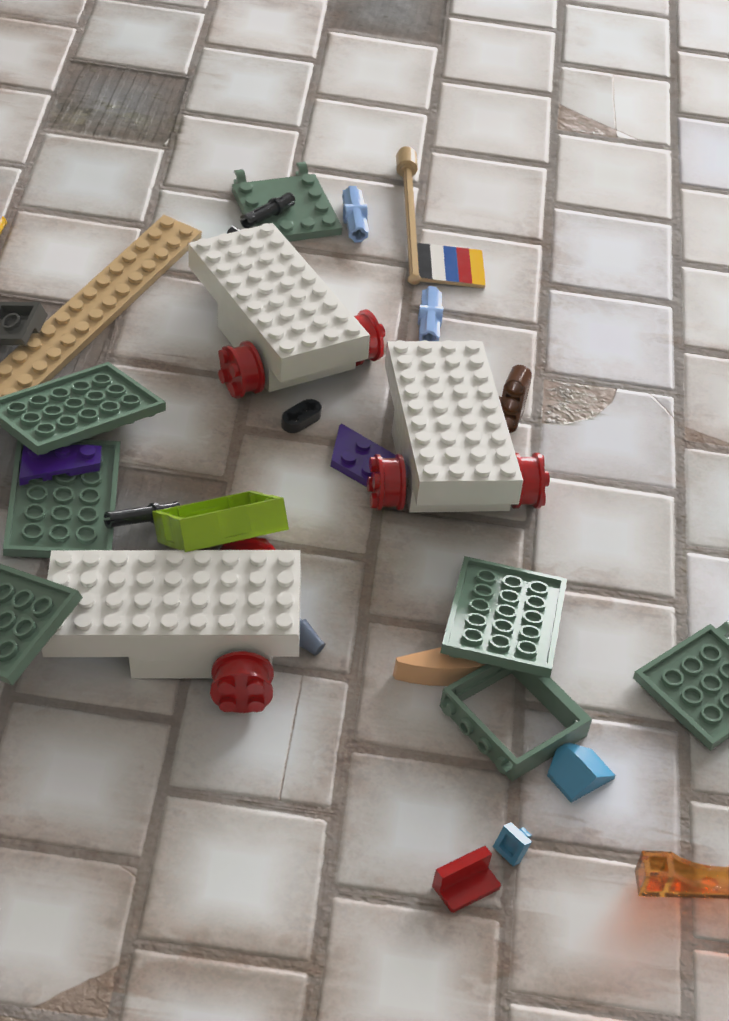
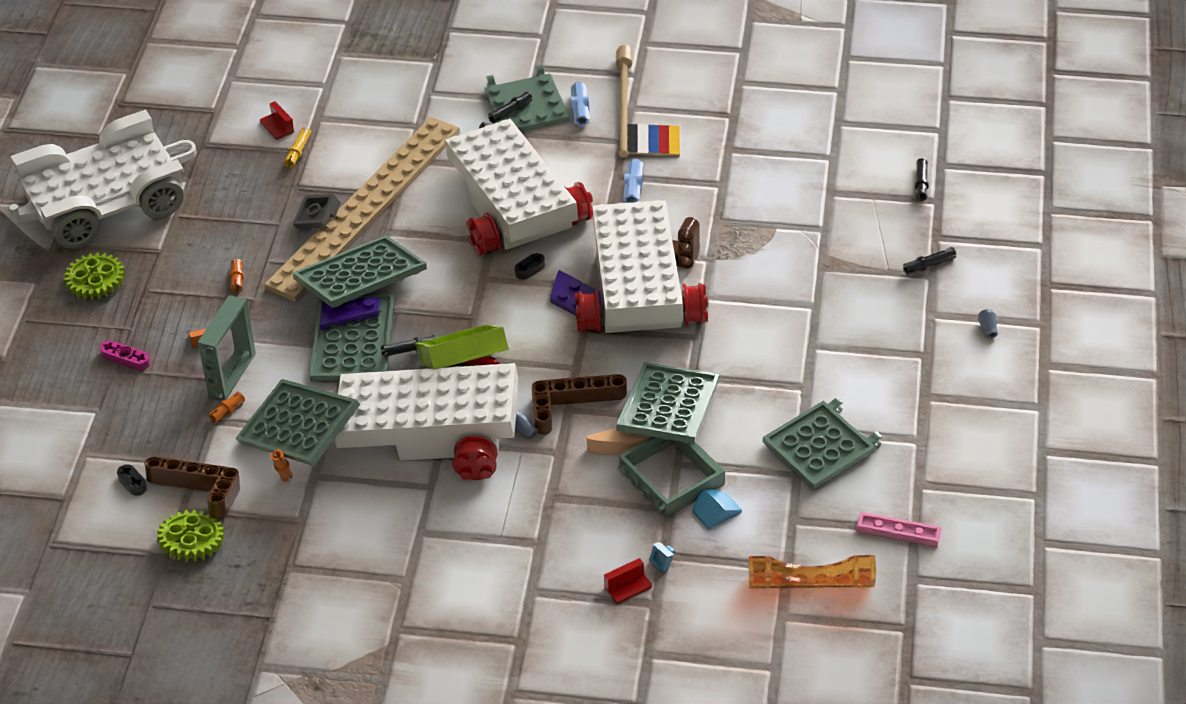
camera: 10 degrees right, 0 degrees up
(368, 591) = (573, 391): none -> reddish brown beam

